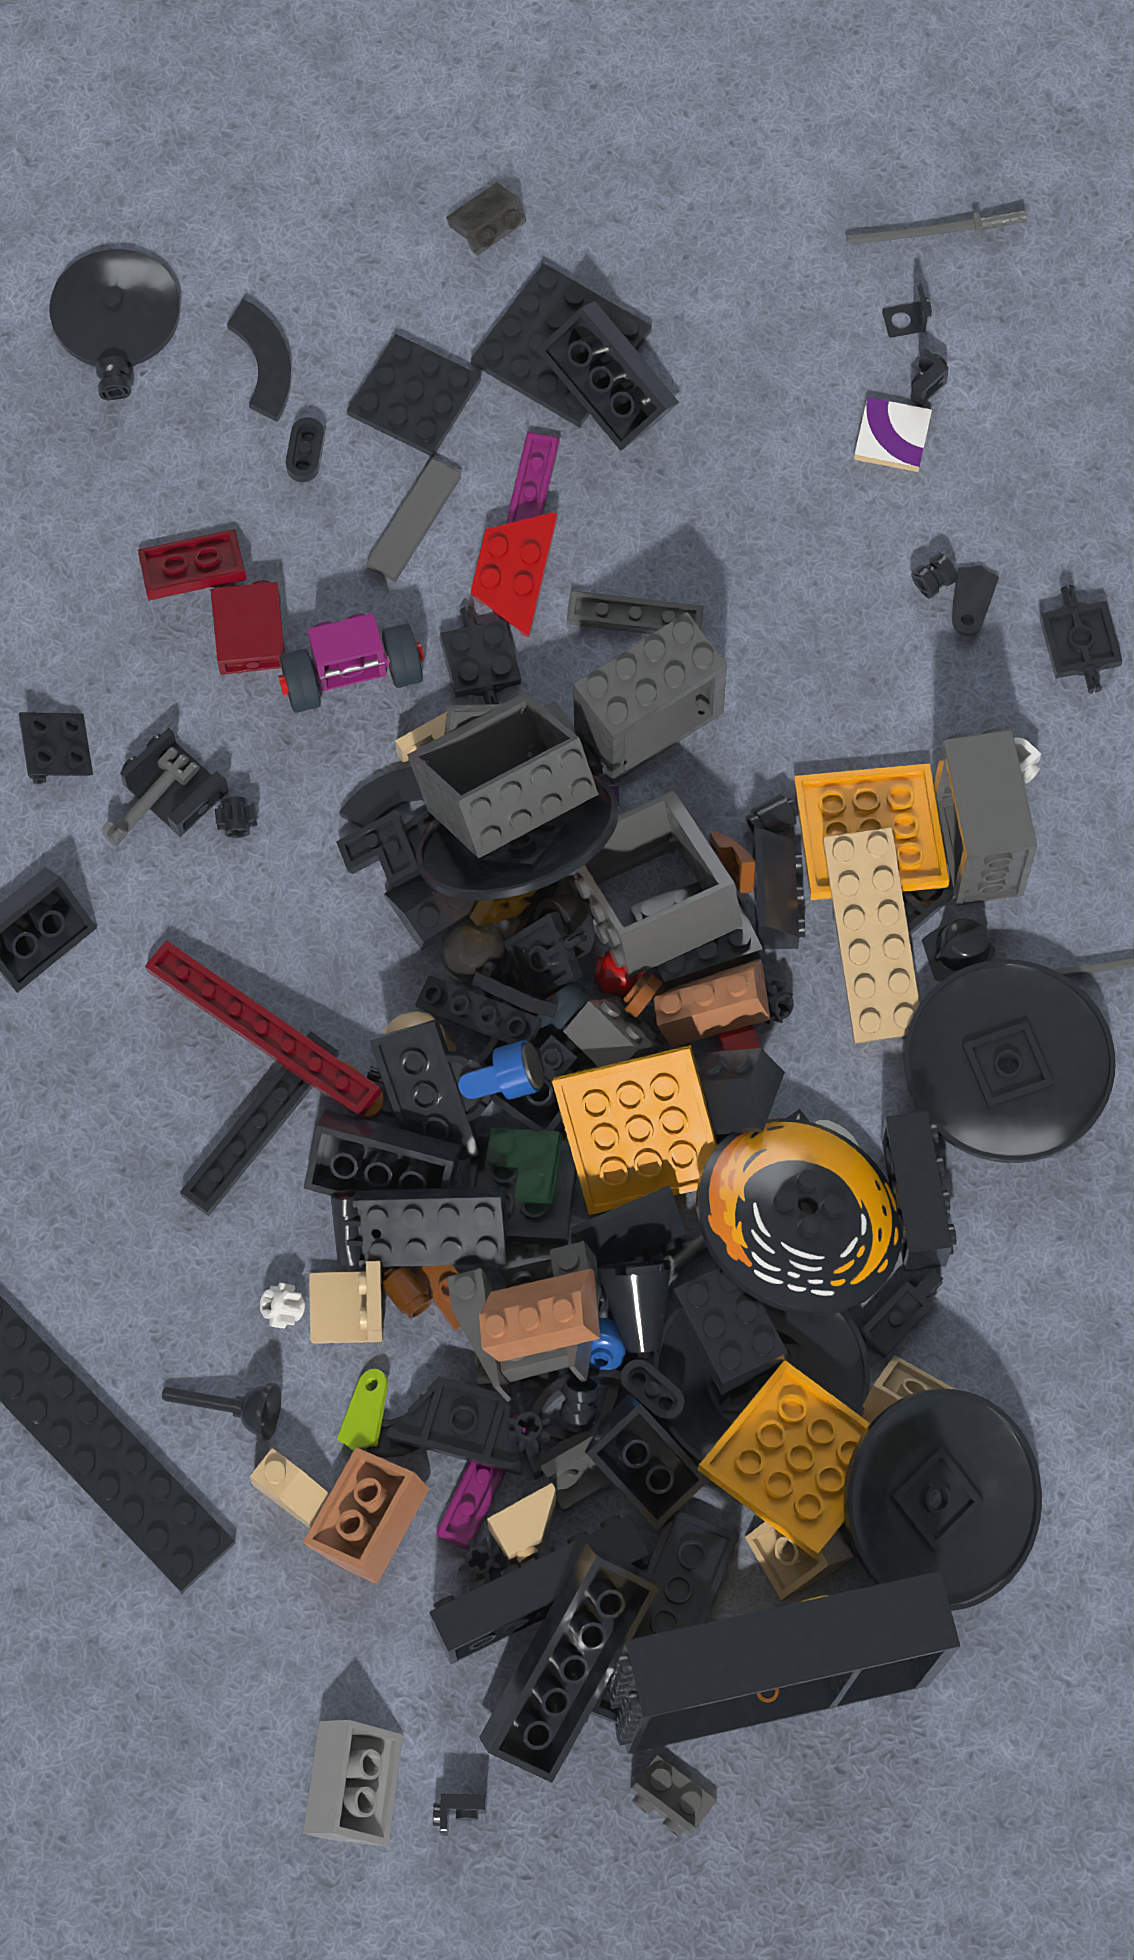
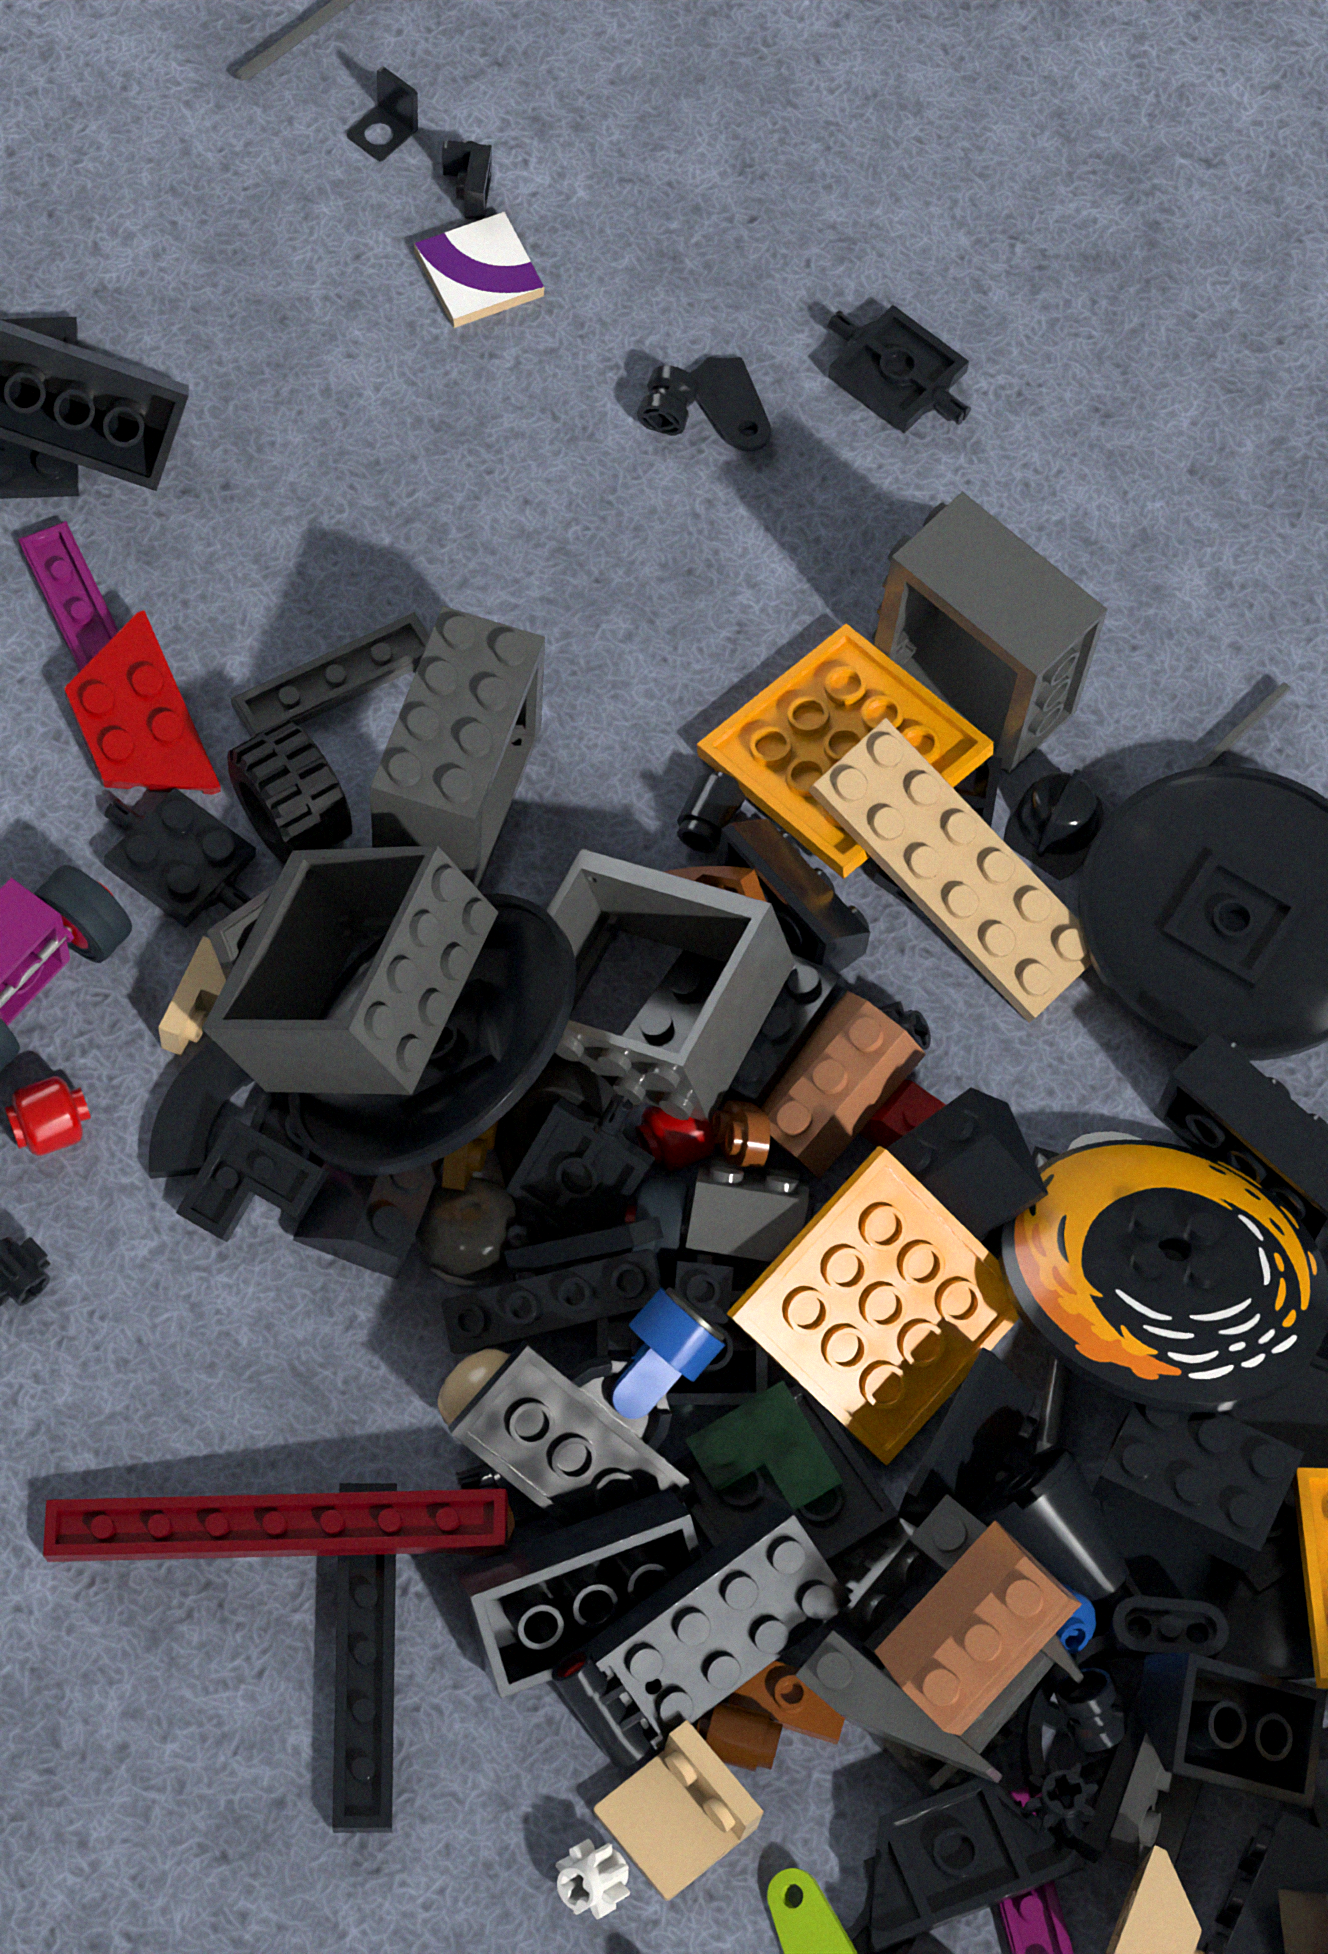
camera: 45 degrees left, 5 degrees down
(311, 749) = (47, 1115): none -> red head
(552, 661) = (289, 791): none -> black tyre

